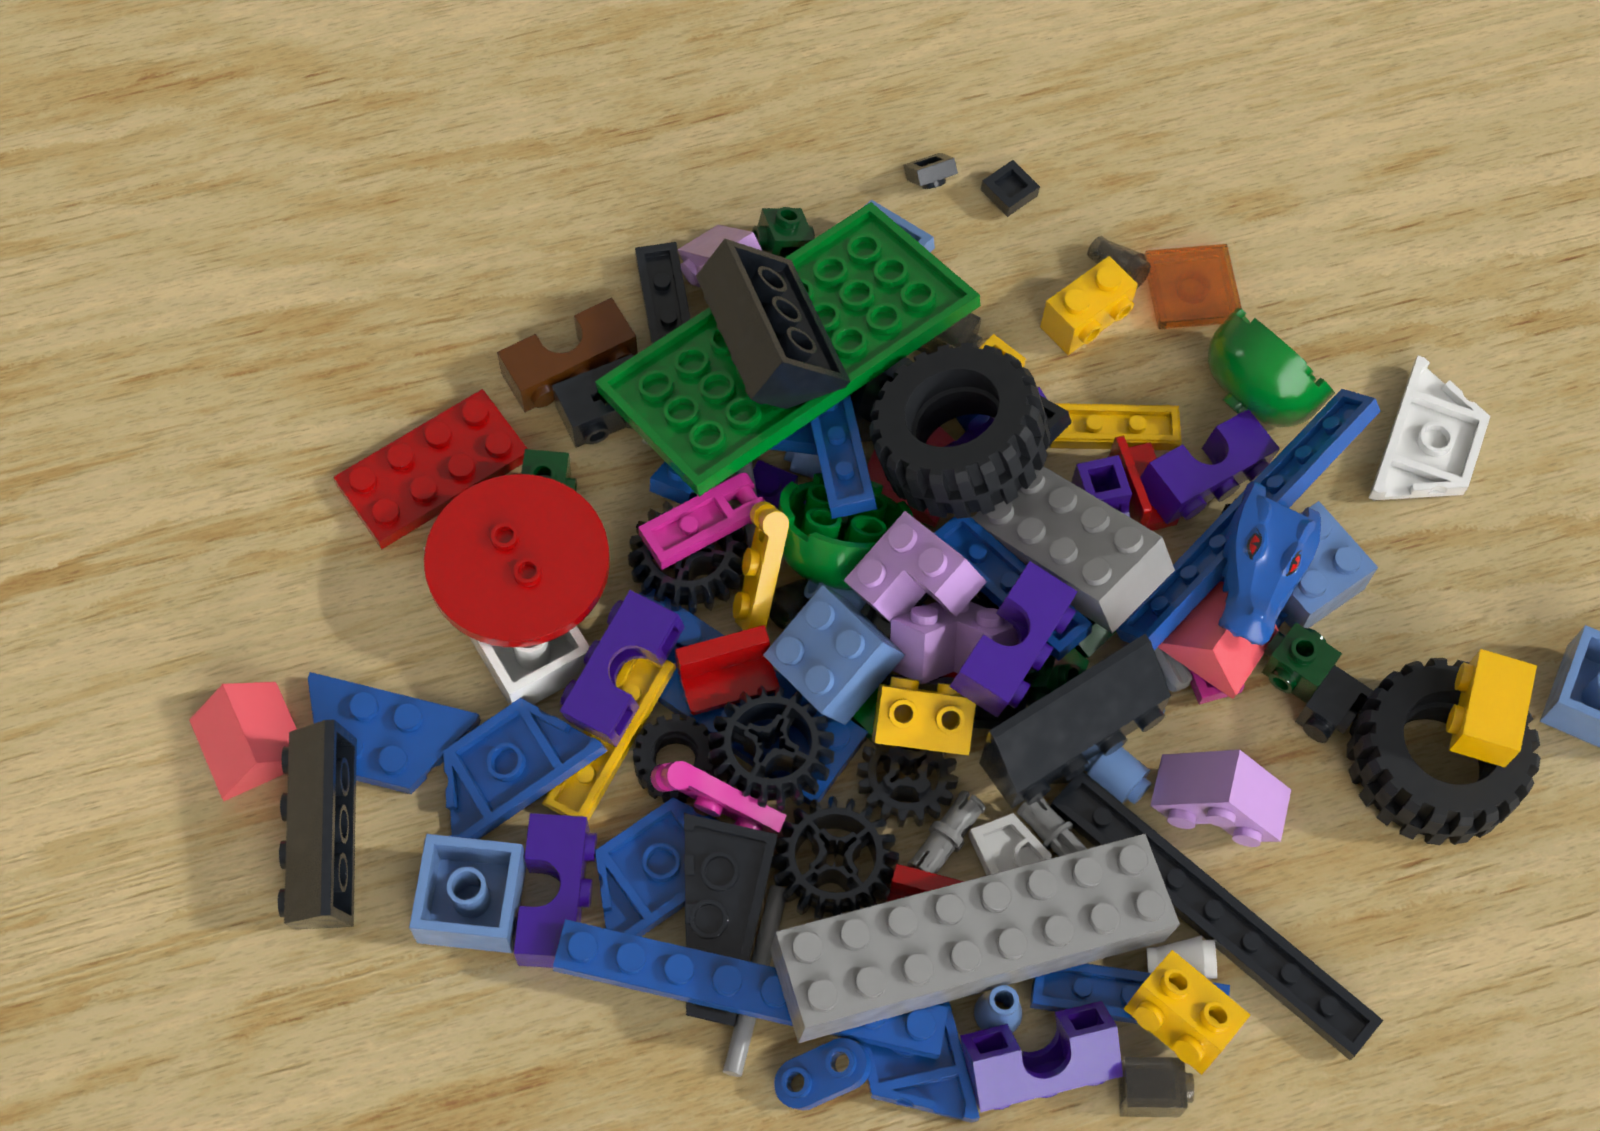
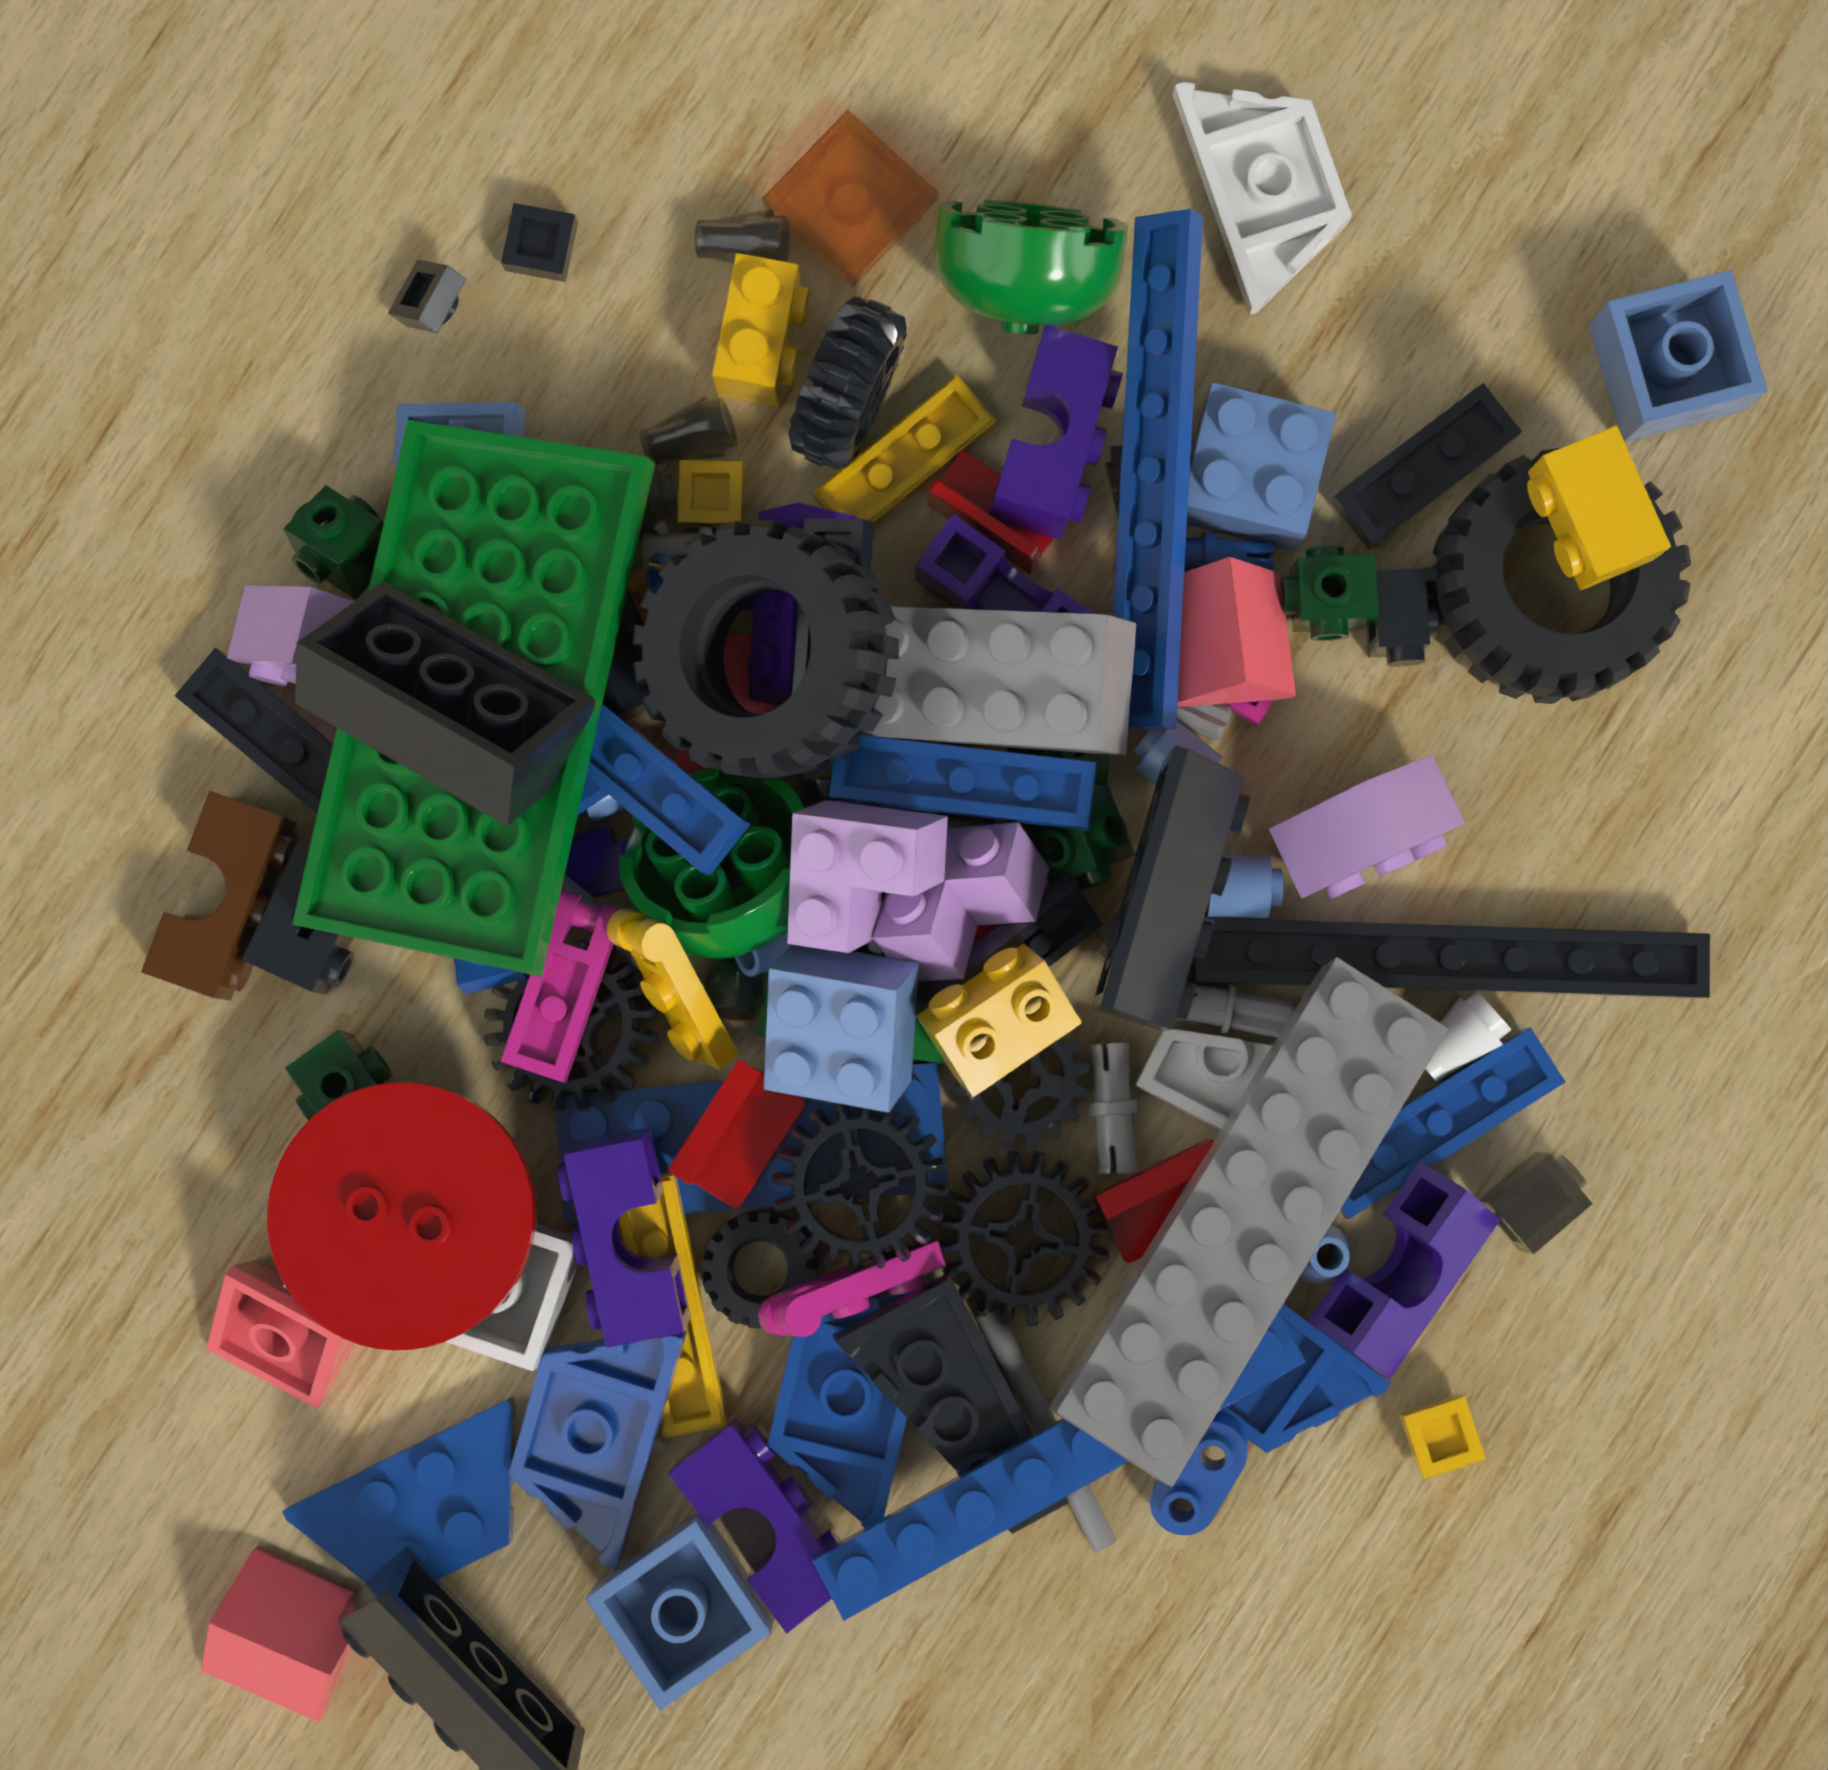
camera: 35 degrees left, 20 degrees up
(395, 583) = (272, 1336): none -> coral slope
(429, 467) = (190, 1160): red plate -> none
(996, 672) = (1036, 806): dark purple arch -> none
(1016, 329) = (692, 433): none -> clear smoke cone
(1115, 357) = (847, 382): none -> black gear
(1186, 1012) = (1520, 1109): yellow brick -> none
(1266, 559) = (1218, 517): blue animal -> none
(1401, 641) = (1426, 466): none -> black plate

